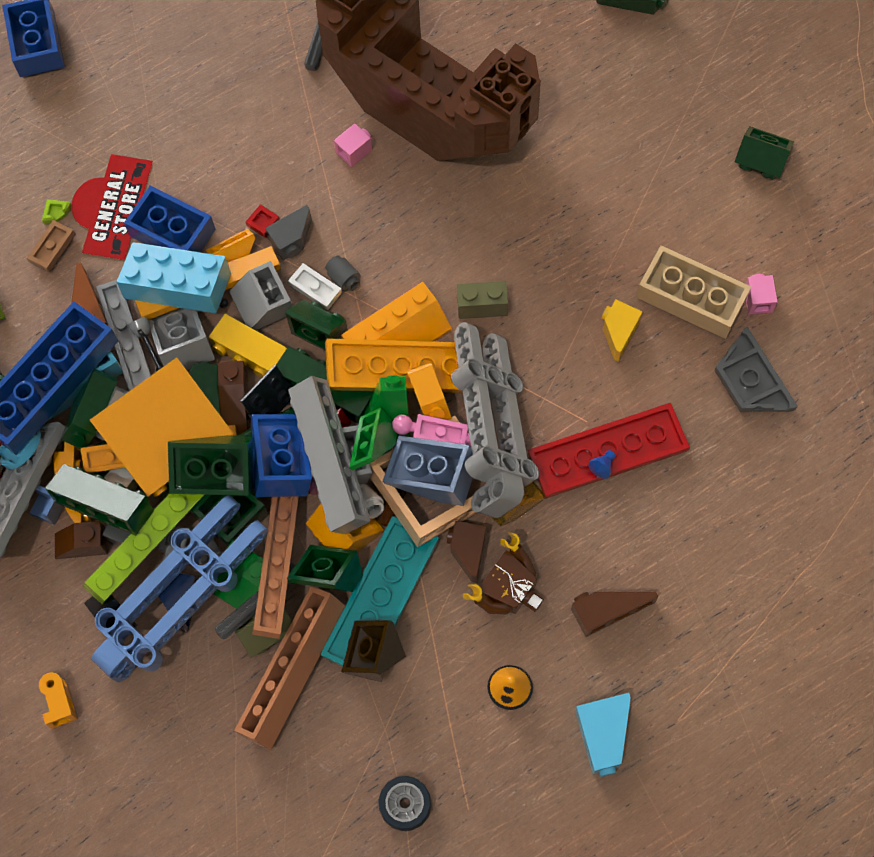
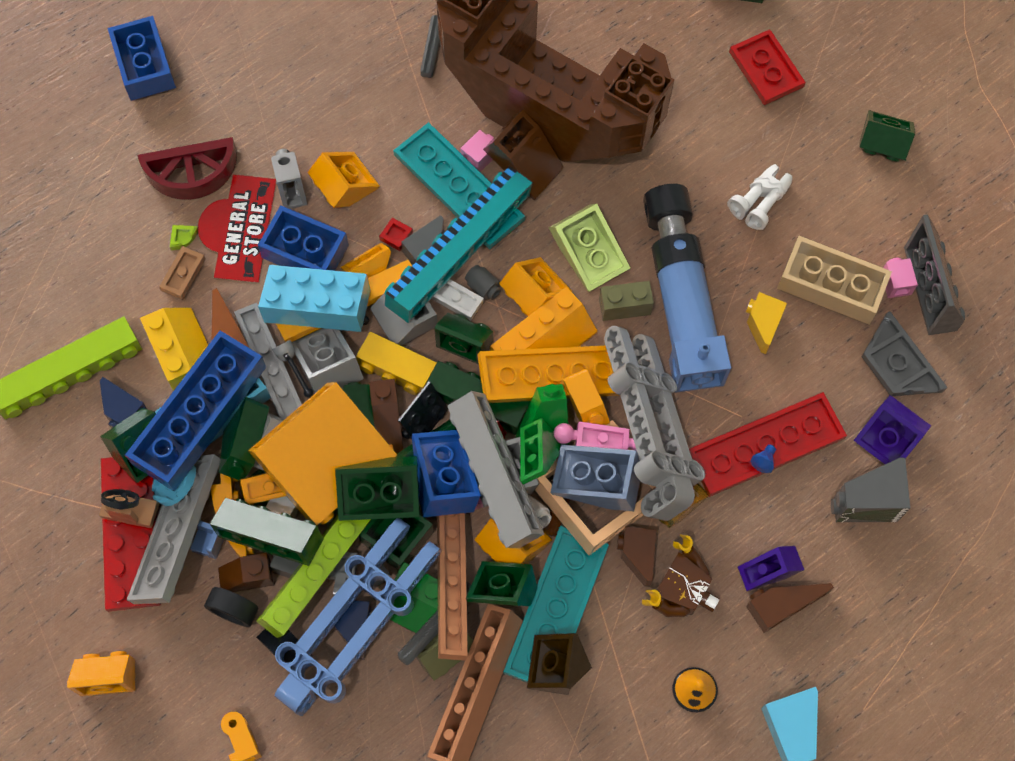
camera: 10 degrees left, 0 degrees up
(34, 307) = (175, 340): none -> yellow slope
(61, 571) = (231, 607): none -> black tyre
(67, 133) = (187, 156): none -> dark red window
(161, 150) = (286, 171): none -> light grey torso
(216, 163) = (342, 178): none -> light orange slope
(318, 233) = (457, 244): none -> teal brick
(330, 177) = (449, 175): none -> teal plate
(390, 277) = (531, 284): none -> light orange slope
(396, 150) = (527, 151): none -> reddish brown slope
(452, 245) = (590, 246): none -> yellowish green slope
(538, 268) = (698, 354): none -> medium blue piece
(599, 572) = (771, 567): none -> dark purple slope
(633, 195) = (763, 186): none -> white piece
(650, 77) = (767, 67): none -> red plate
(708, 508) = (874, 496): none -> dark grey slope
(736, 447) = (892, 431): none -> dark purple slope
(795, 297) = (933, 275): none -> dark grey slope

